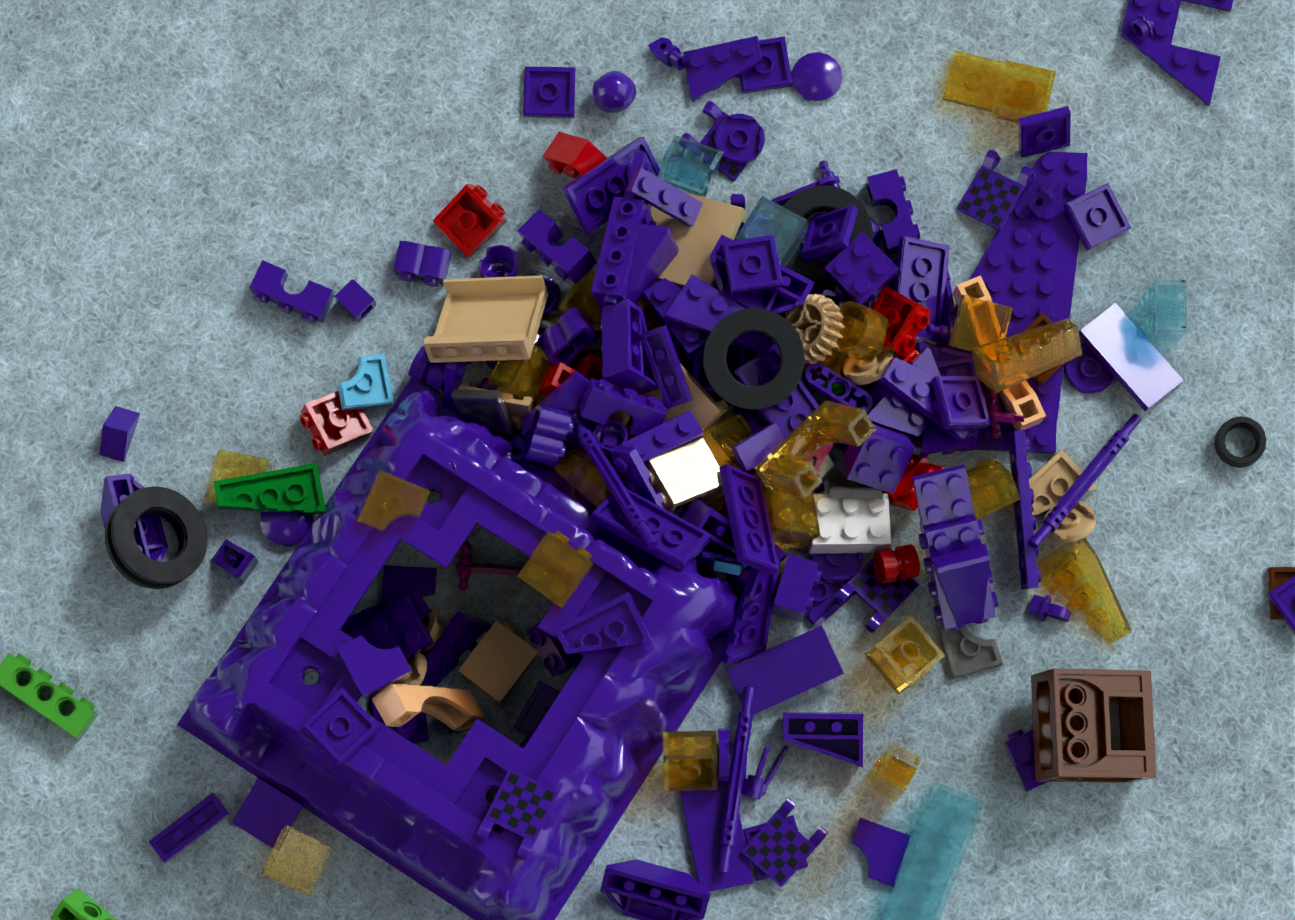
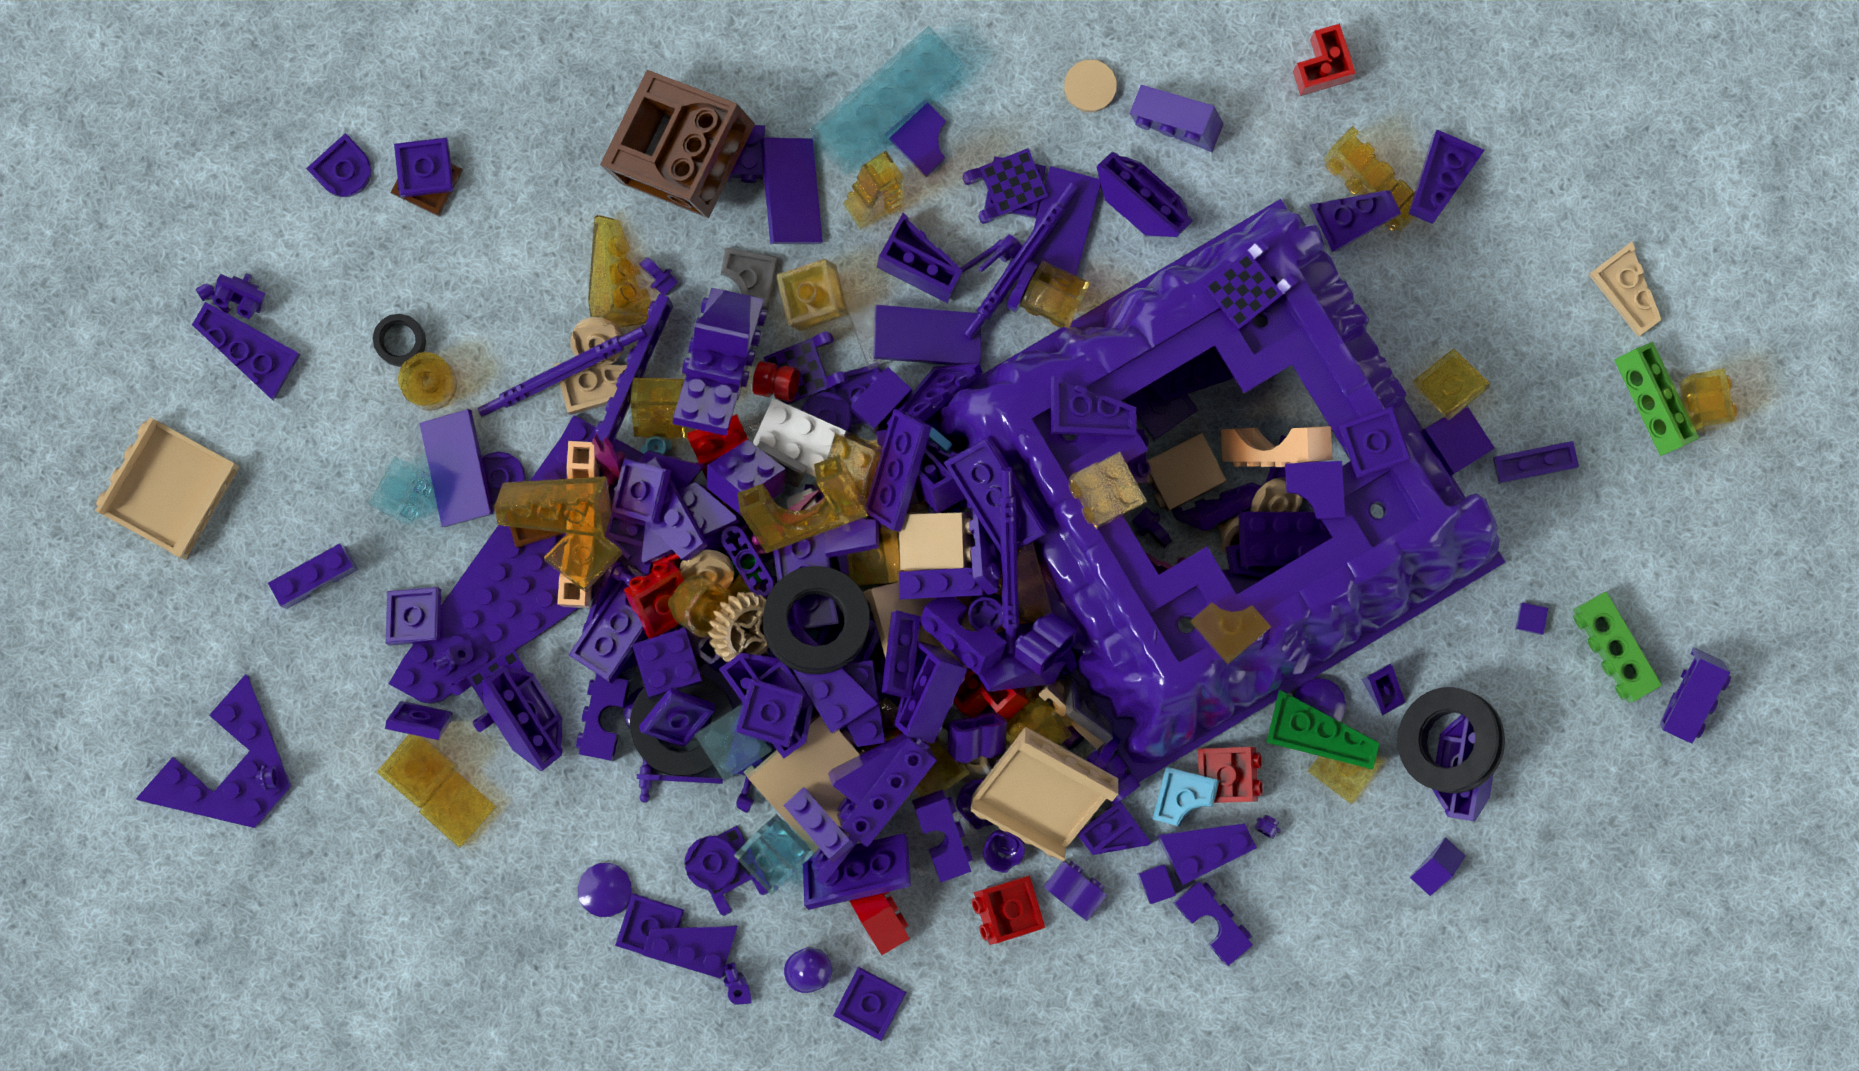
camera: 160 degrees left, 5 degrees up
(131, 686) = (1531, 618): none -> dark purple tile
(282, 395) = (1268, 825): none -> dark purple plate
(327, 348) = (1204, 850): none -> dark purple wedge
(412, 326) = (1113, 832): none -> dark purple wing
(510, 605) = (1148, 522): none -> dark purple piece
(958, 179) = (524, 715): none -> dark purple wedge
(971, 741) = (791, 190): none -> dark purple tile
(975, 454) = (664, 445): none -> medium azure plate
(1199, 207) = (312, 574): none -> dark purple arch
(1202, 403) = (420, 368): none -> clear yellow brick

